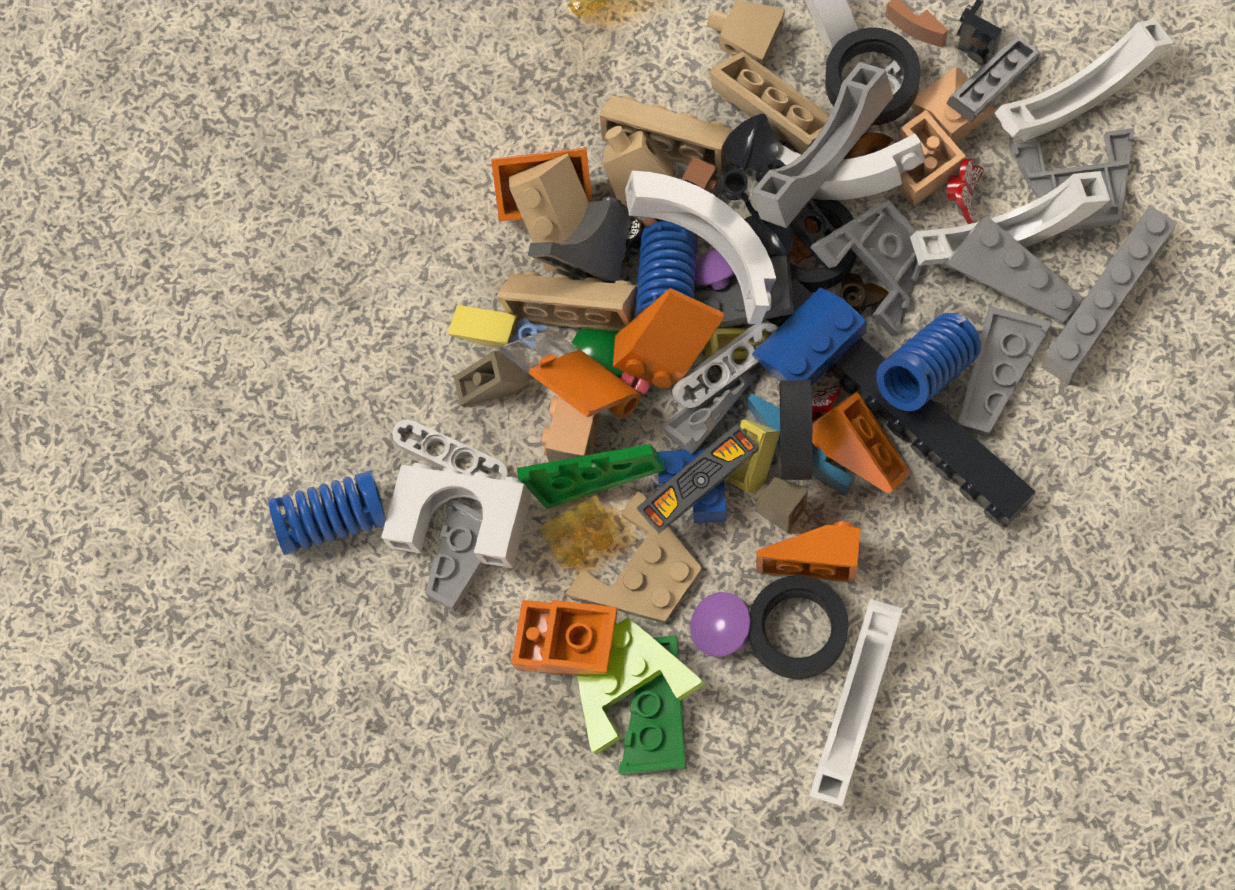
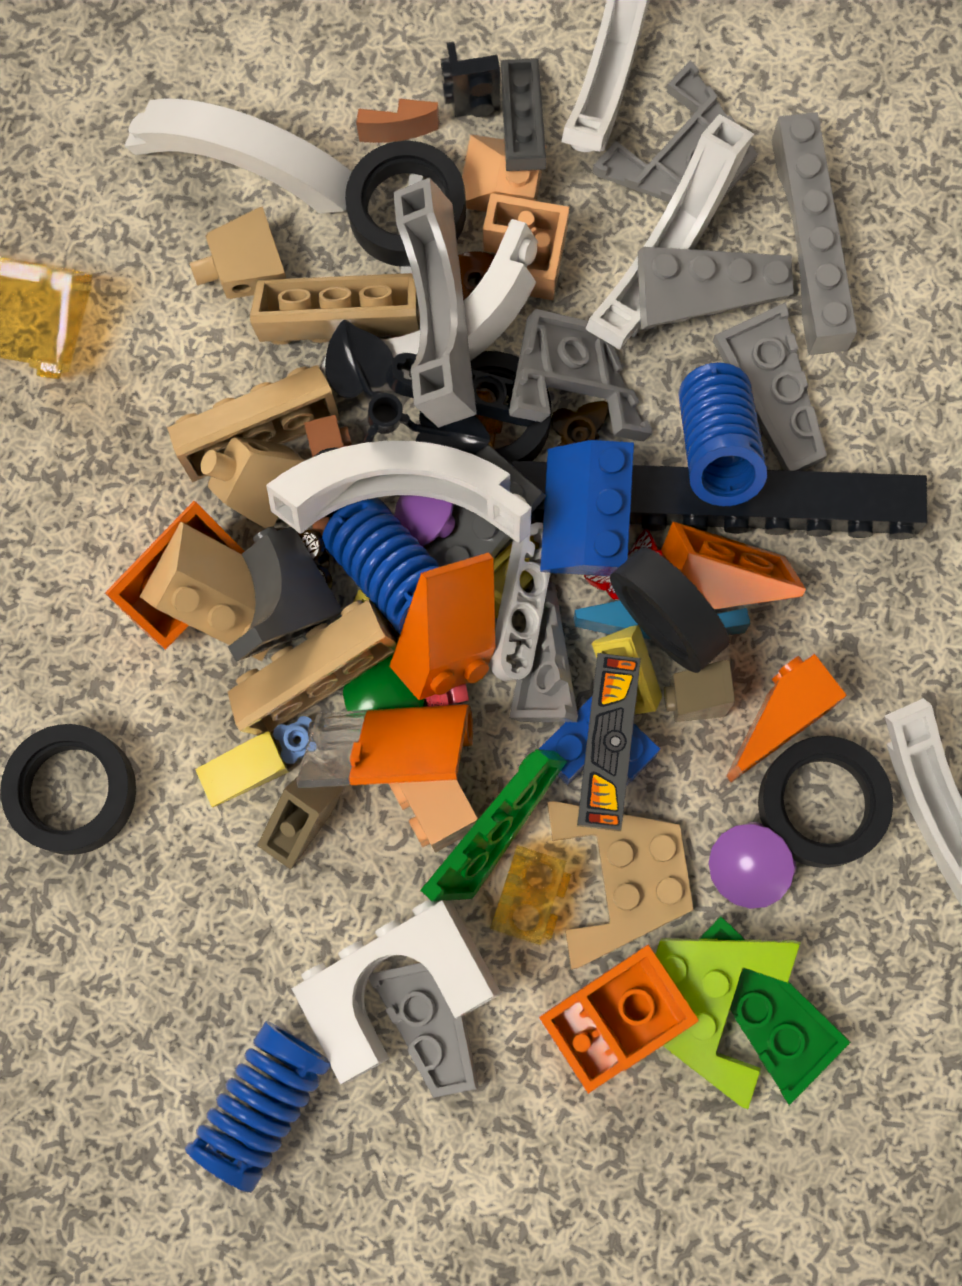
camera: 45 degrees left, 5 degrees up
(375, 220) = (25, 763): none -> black tyre
(452, 451) = (326, 925): white beam -> none
(961, 187) = (586, 245): red animal -> none

